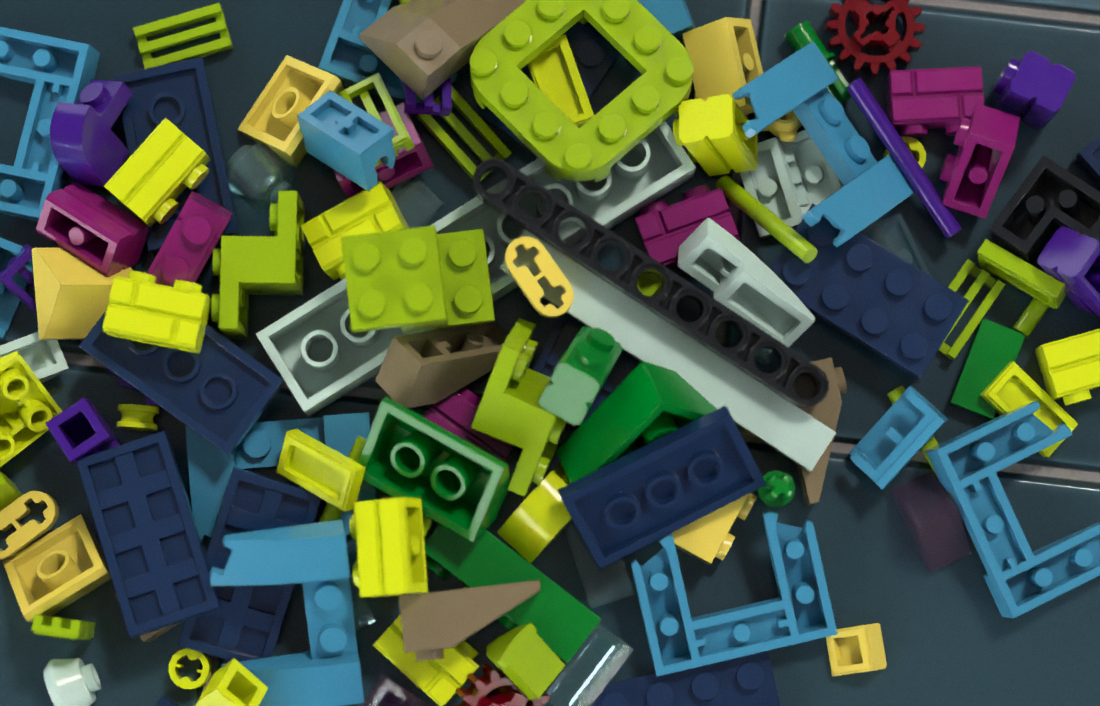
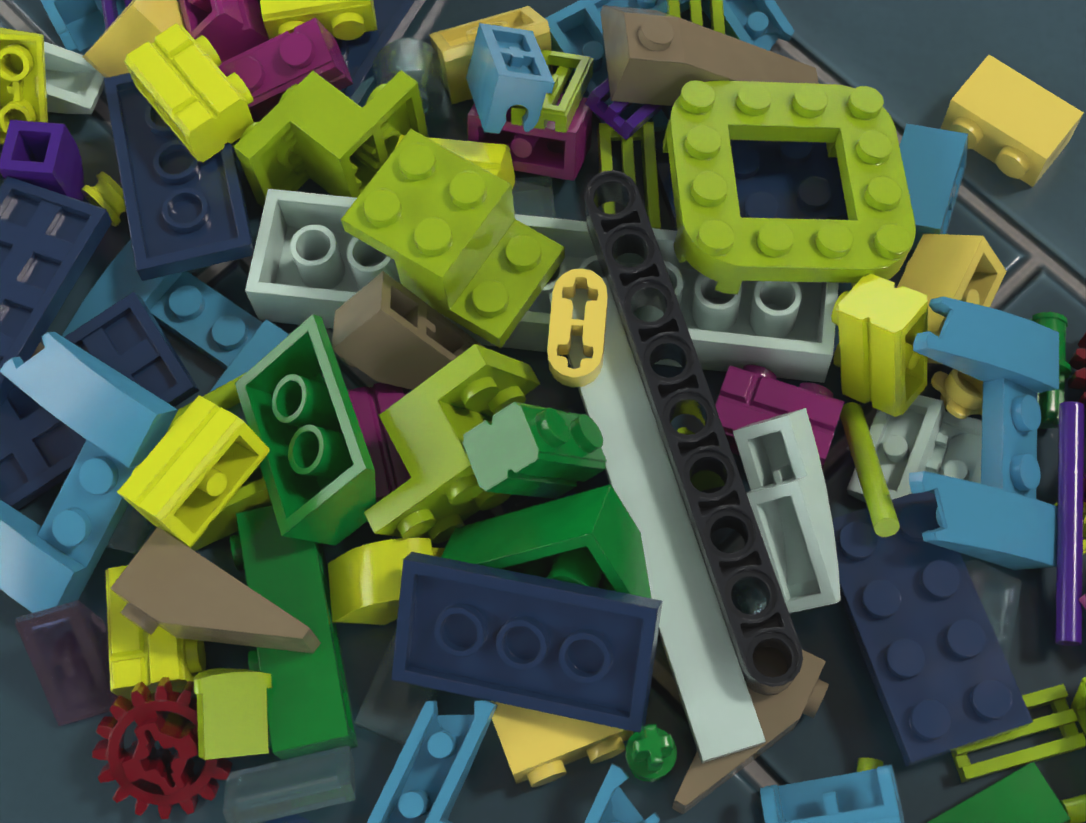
camera: 45 degrees right, 15 degrees down
(320, 470) = (211, 355): neon yellow tile -> none
(559, 79) = (765, 178): neon yellow tile -> none

